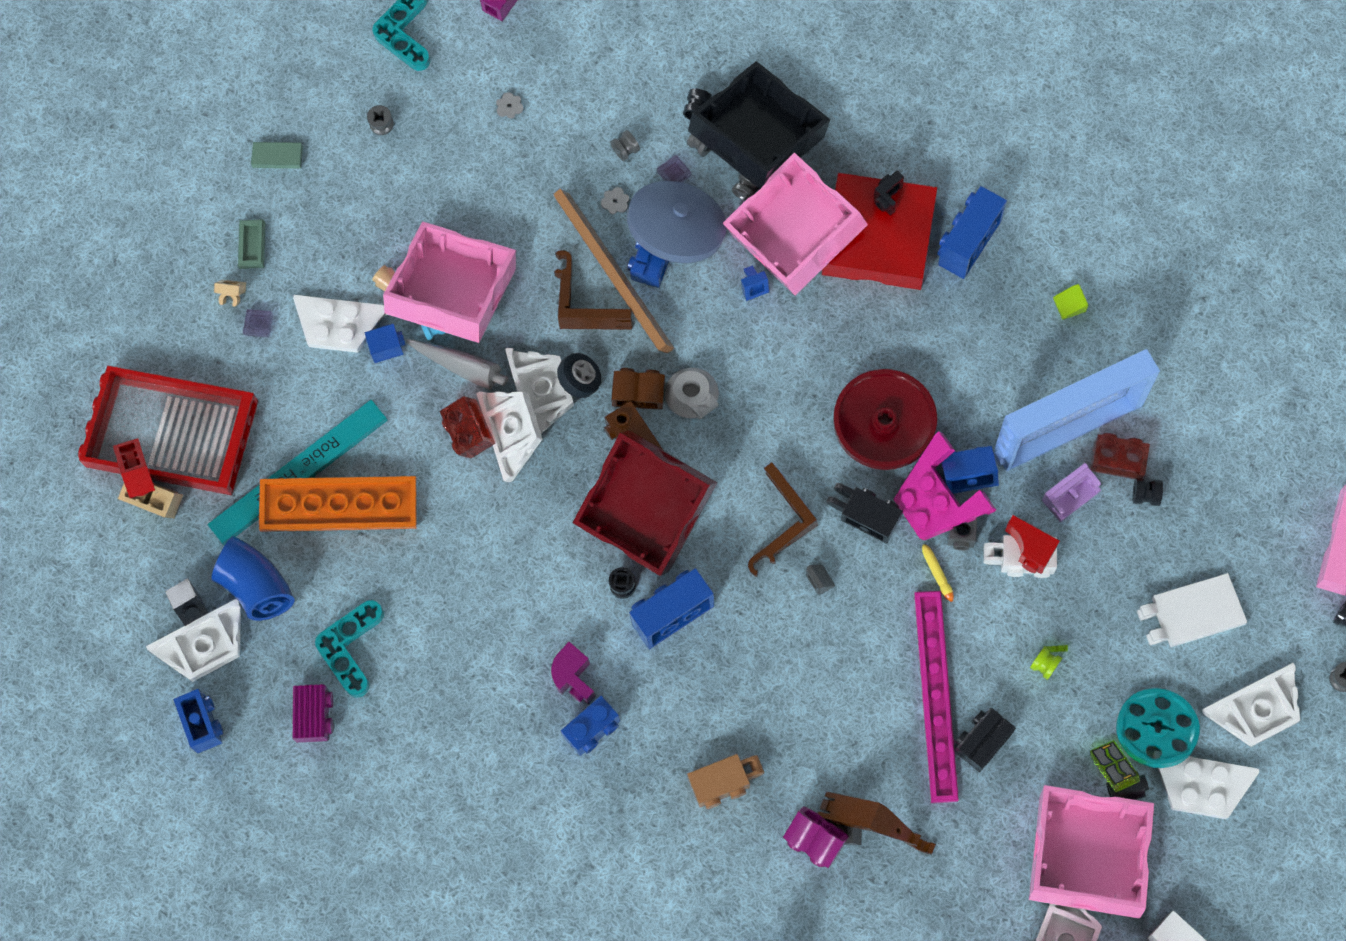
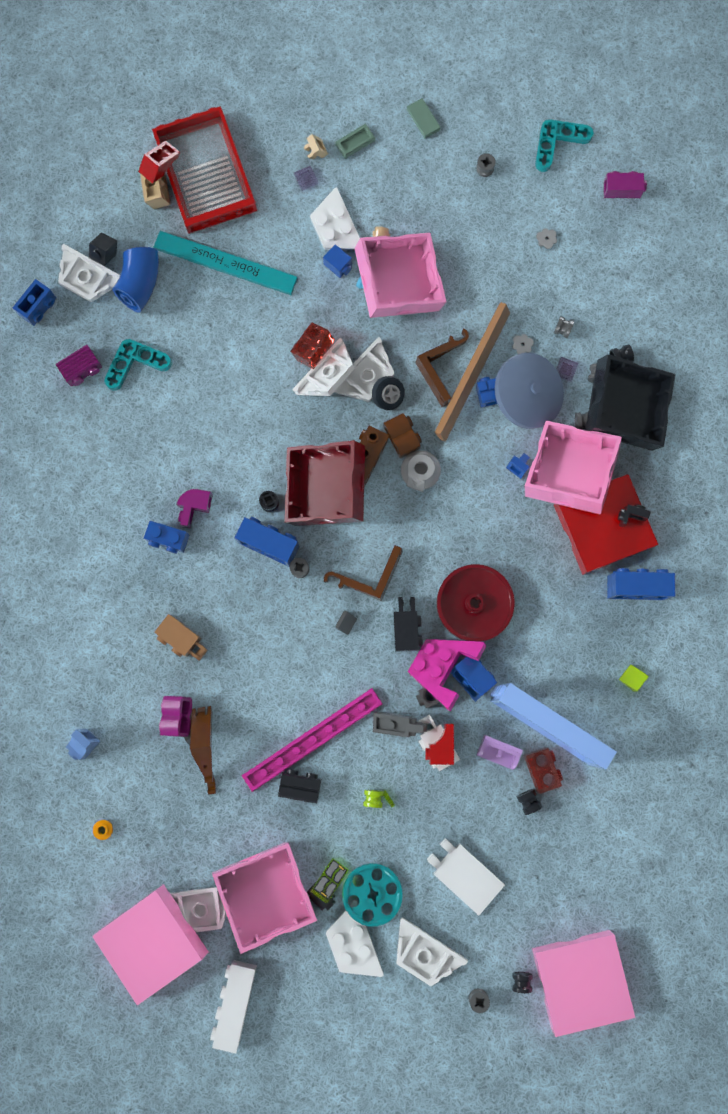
camera: 55 degrees right, 10 degrees up
(338, 503) = (217, 299): orange plate -> none
(463, 364) = (354, 317): light grey piece -> none
(723, 599) = (300, 571): none -> dark grey wheel
(937, 572) = (394, 695): light yellow piece -> none
(975, 586) = (397, 725): none -> dark grey hinge

